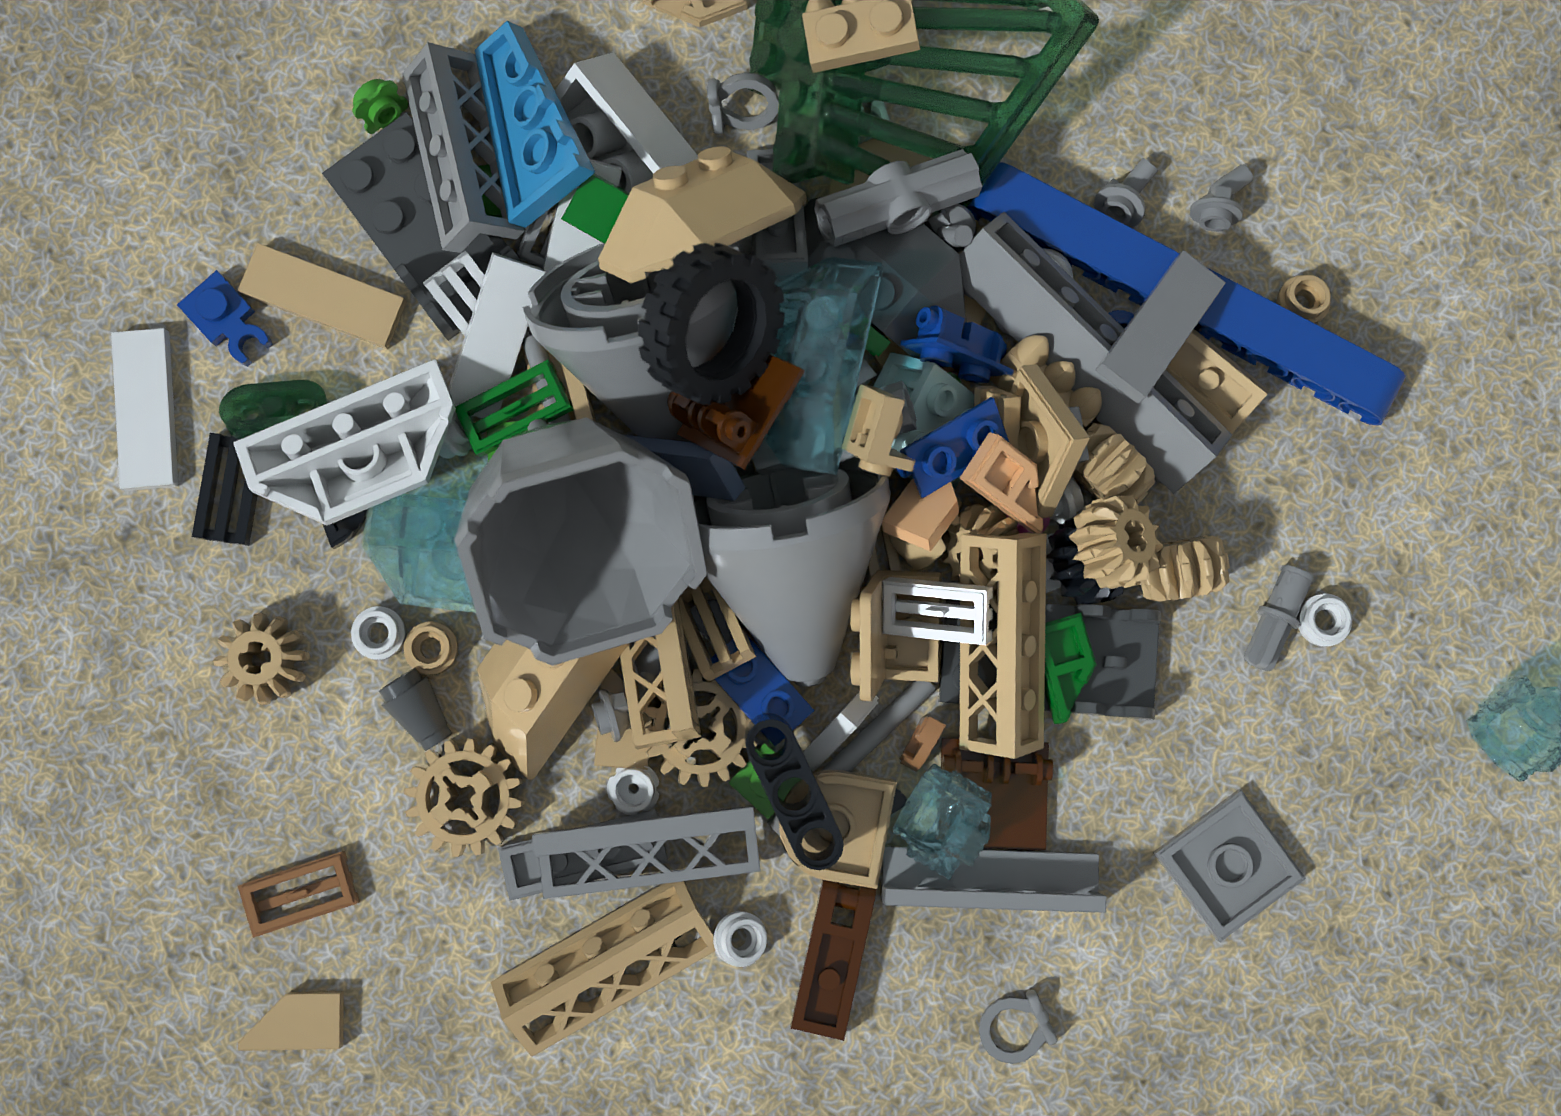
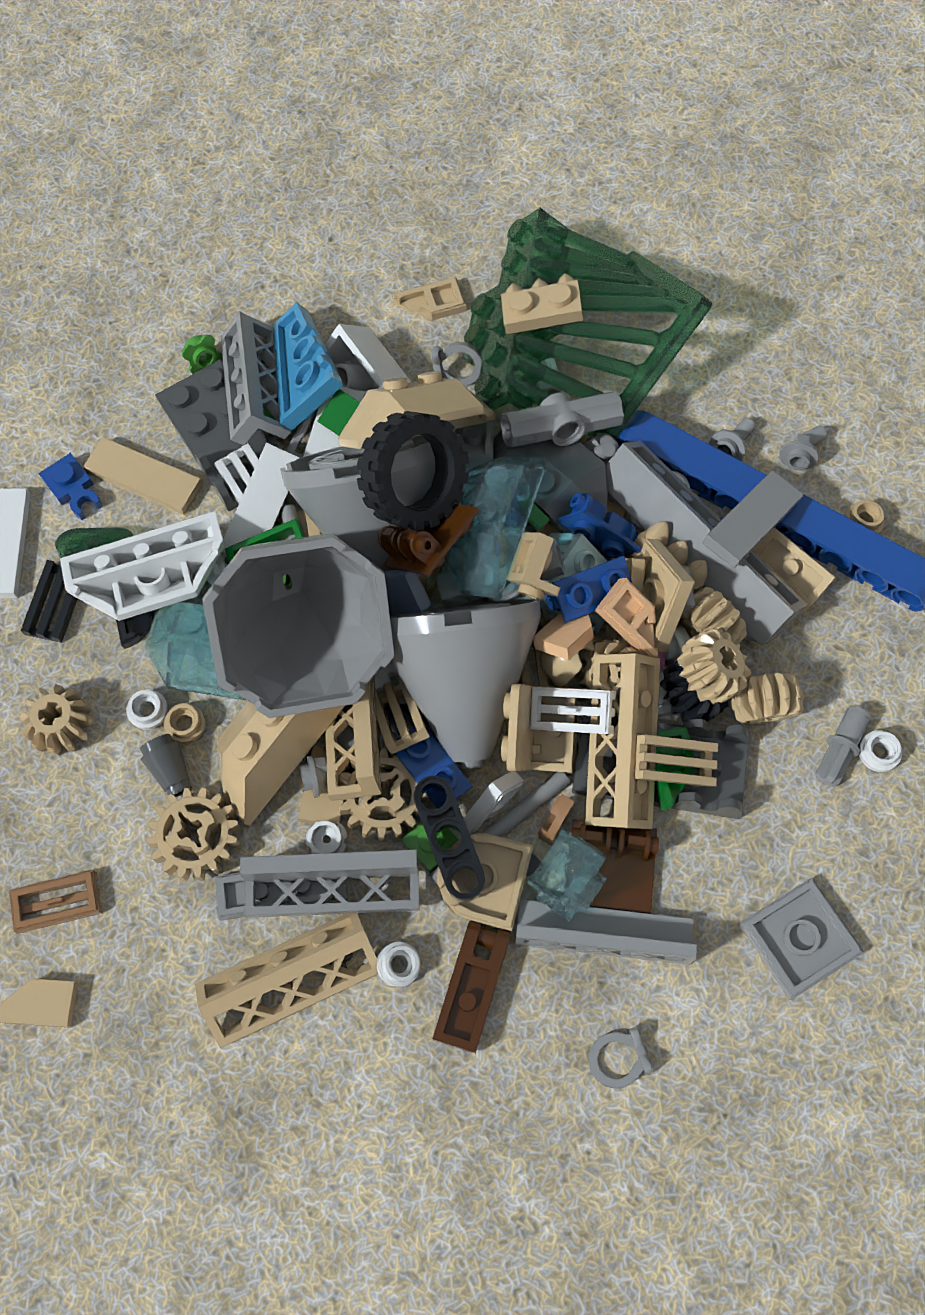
camera: 15 degrees right, 15 degrees down
(1106, 666) = (705, 762): none -> tan tile

